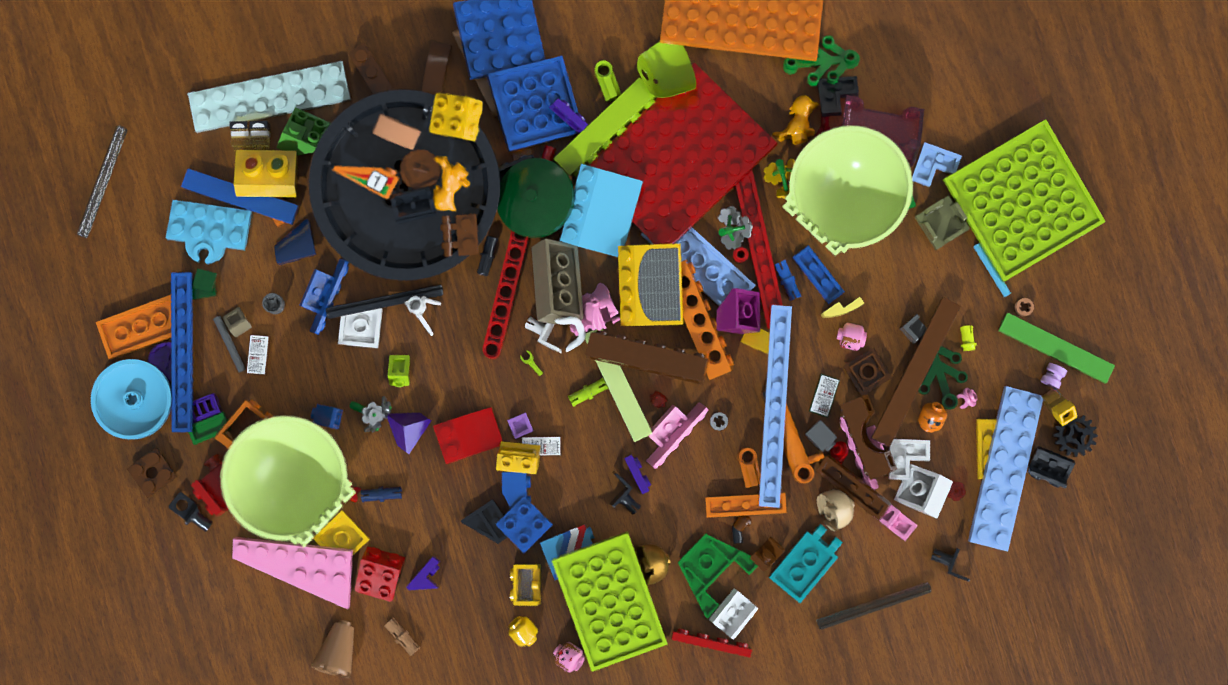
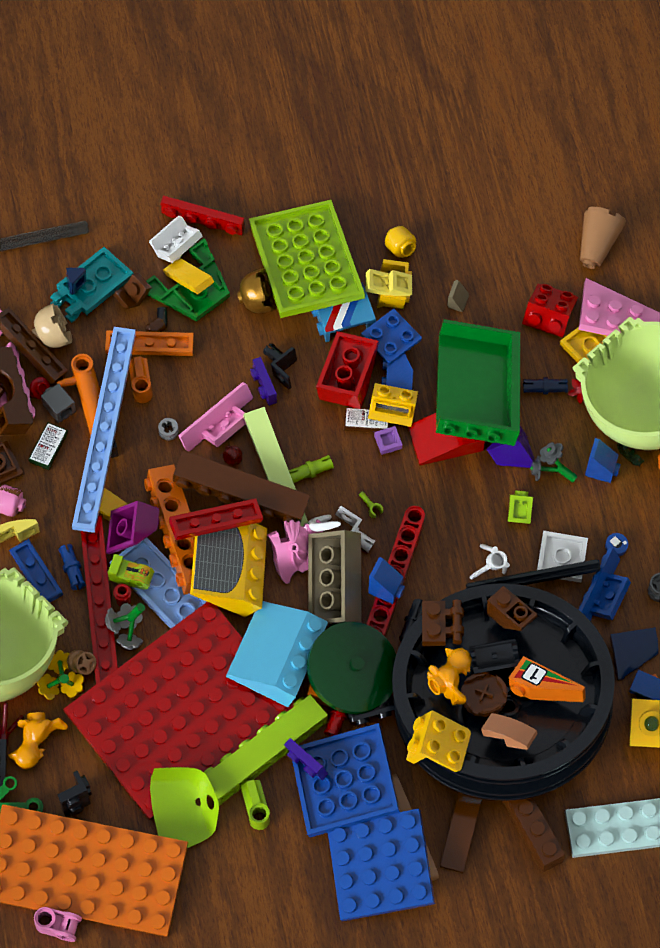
camera: 175 degrees left, 20 degrees down
(302, 132) = (620, 771): bright green slope -> none
(312, 343) = (618, 542): none -> blue tile
(399, 245) = (509, 610): none -> reddish brown slope
(402, 636) = (529, 248): medium nougat pin -> none
(421, 580) = (502, 299): dark purple slope -> none
(441, 480) = (478, 382): none -> green panel
(465, 578) = (458, 297): none -> dark tan slope
(485, 521) = (426, 350): black wing -> none
(511, 274) = (385, 582): none -> blue slope
(530, 578) = (390, 284): none -> light yellow slope
(561, 488) = (347, 370): none -> red slope
(568, 657) = (354, 214): bright pink head -> none
(665, 316) = (215, 519): none -> red plate
(717, 572) = (188, 276): none -> yellow tile
(735, 272) = (130, 573): none -> lime leg
(759, 65) = (75, 798): none -> black bracket
(767, 190) = (86, 665): none -> medium nougat wheel
(821, 558) = (75, 279): none -> dark blue slope

